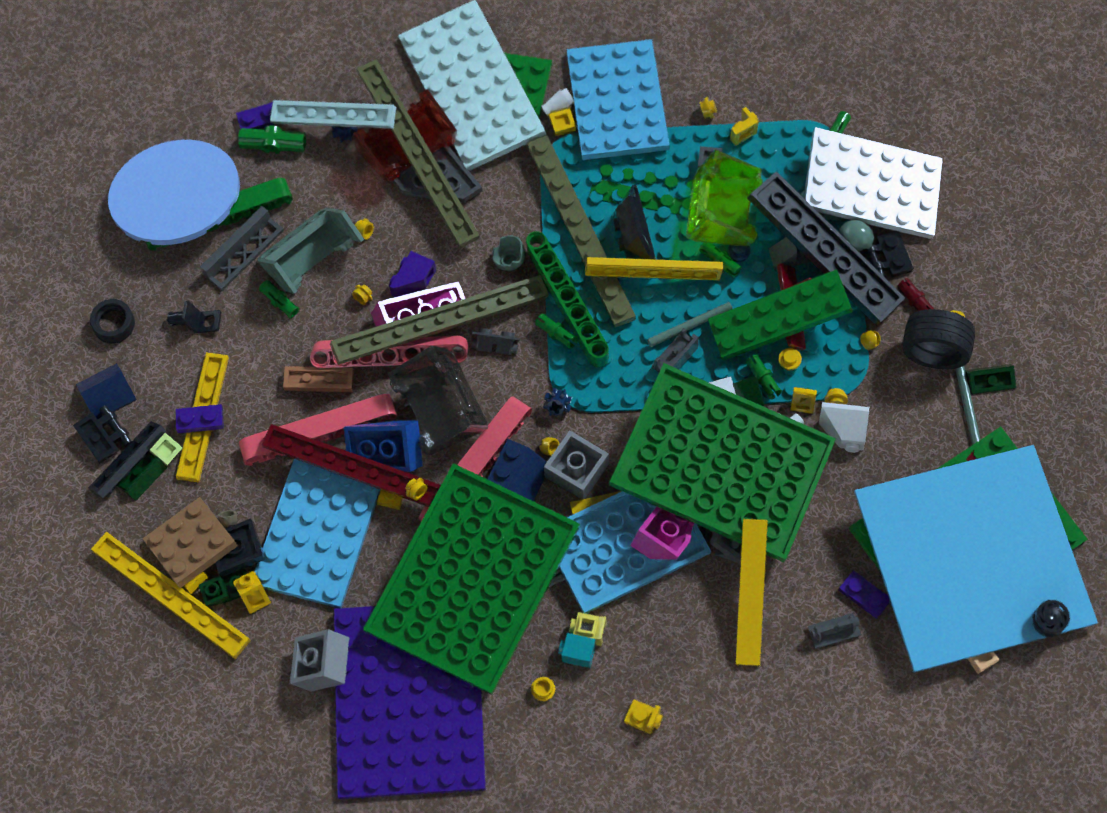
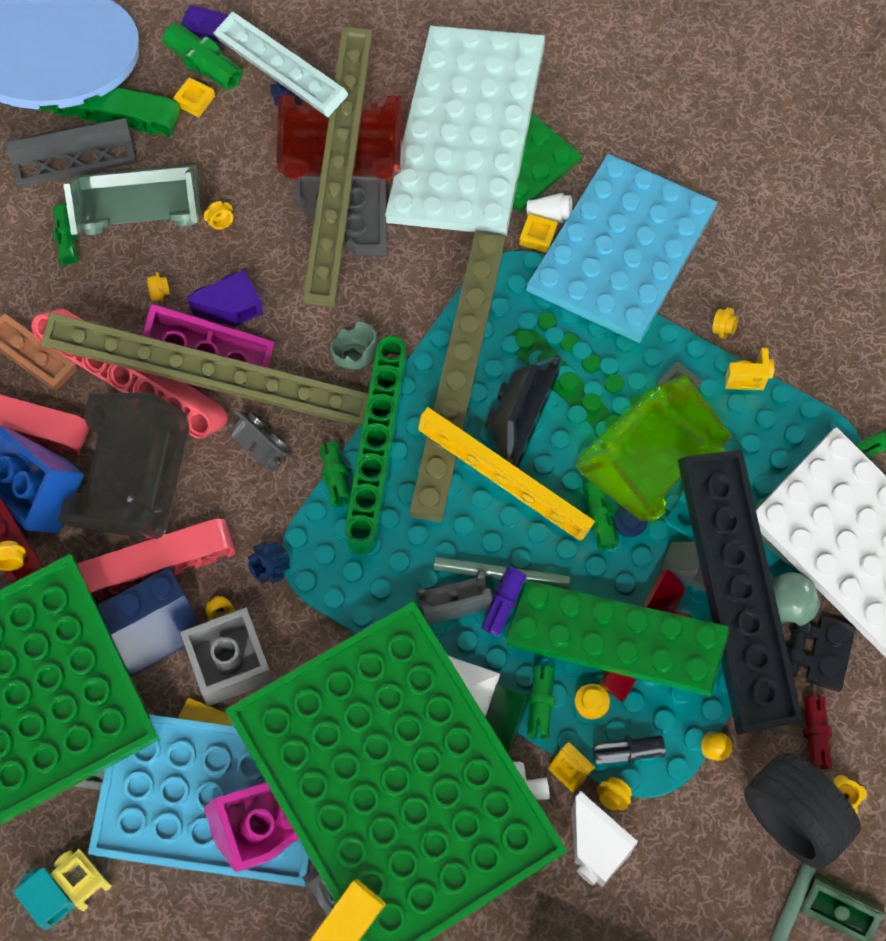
camera: 30 degrees right, 0 degrees up
(288, 167) = (194, 97): none -> yellow plate
(705, 342) = (503, 601): none -> dark purple axle
(828, 370) = (629, 749): none -> black axle

